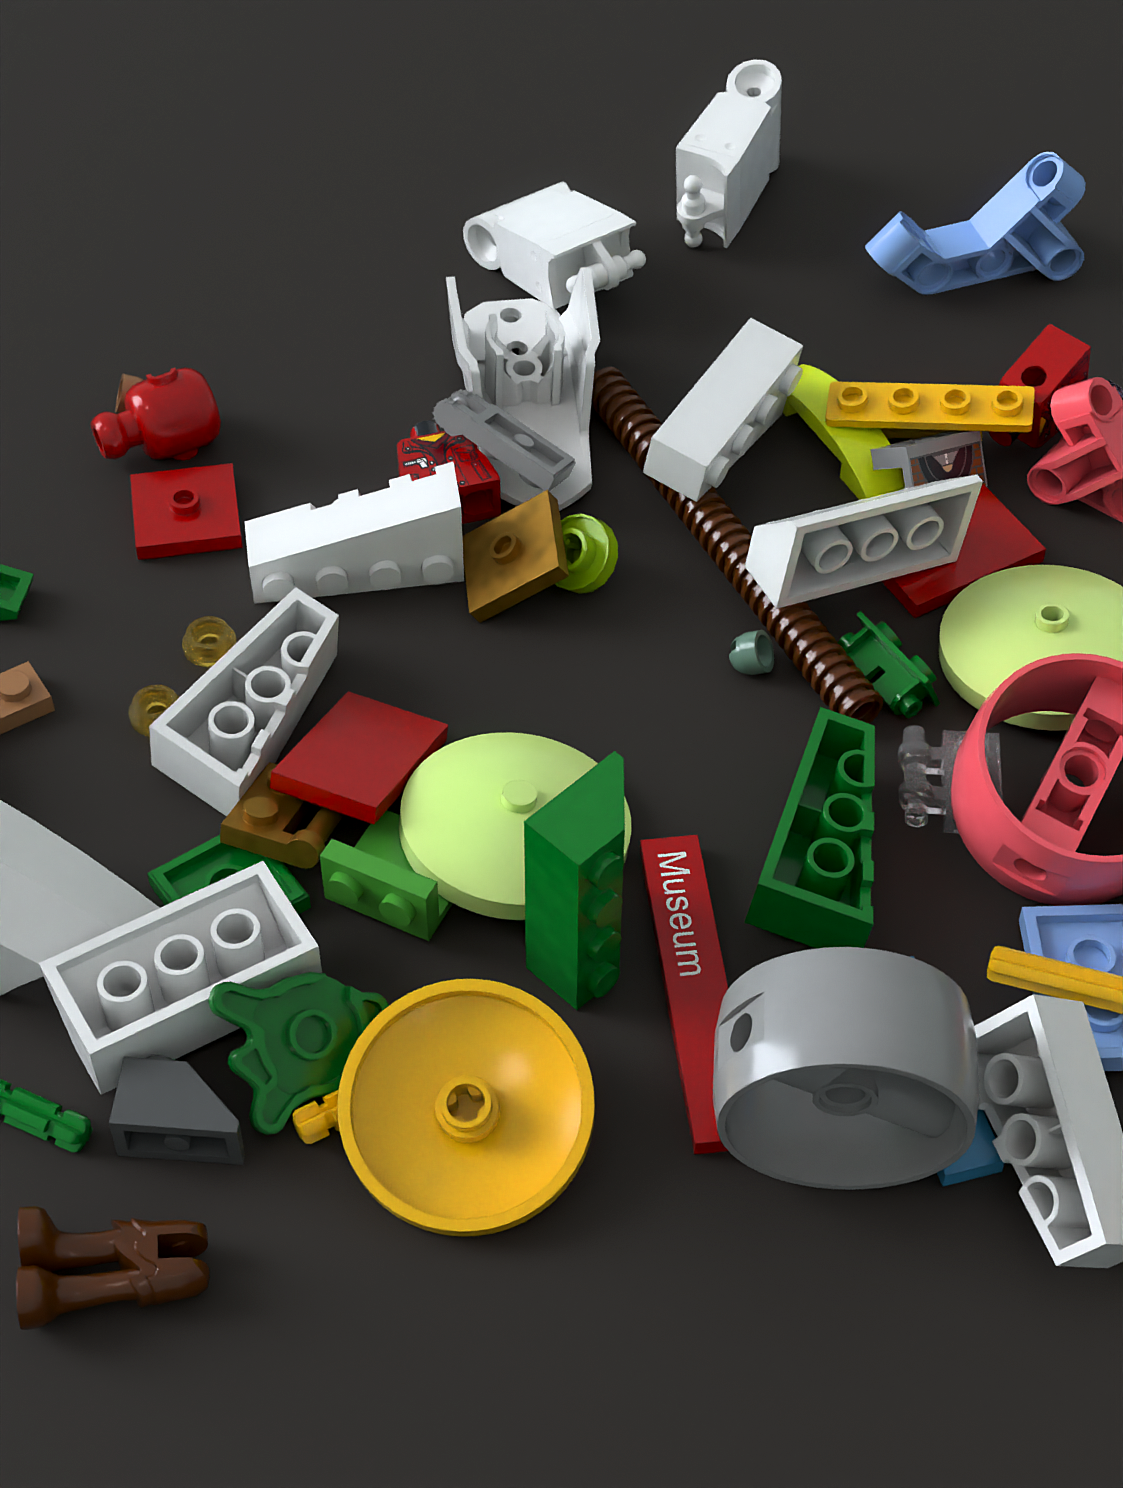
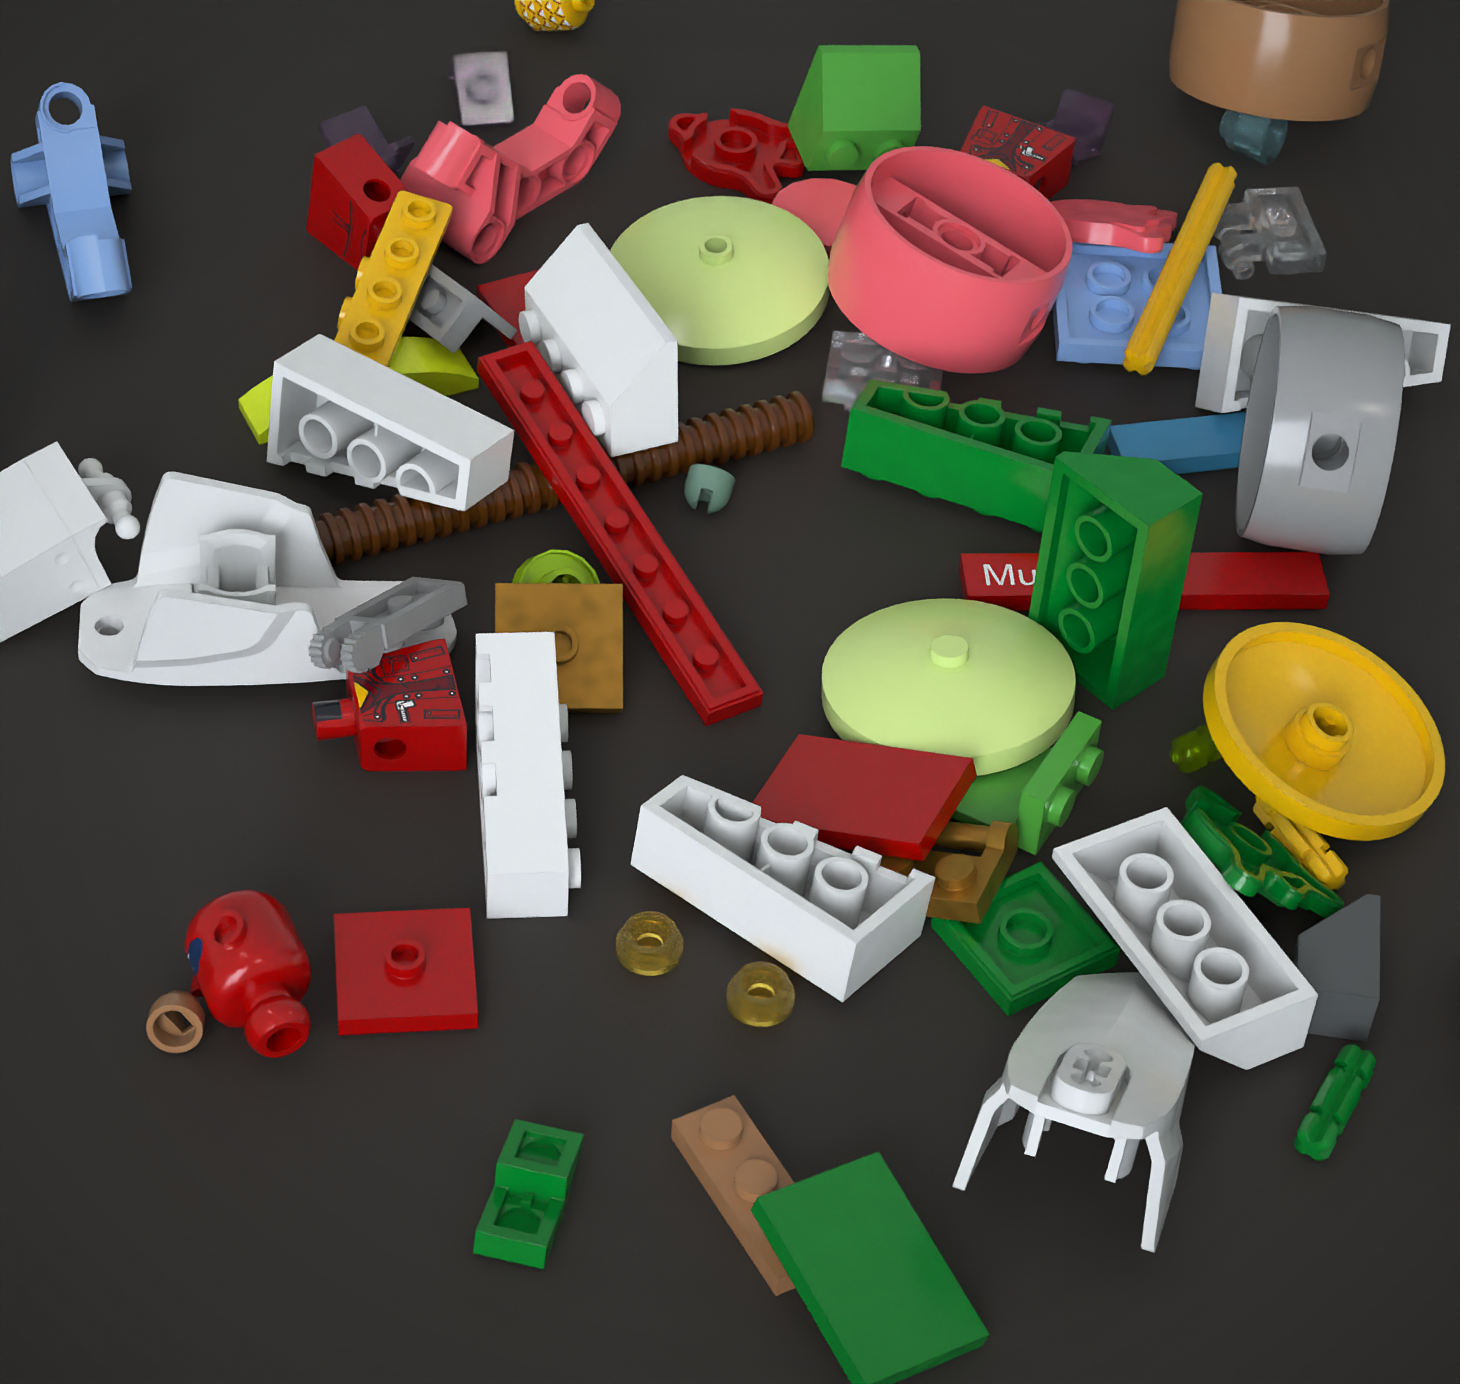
camera: 90 degrees left, 5 degrees down
(651, 584) = (620, 534): none -> red tile
(904, 680) = (752, 379): green hinge -> none

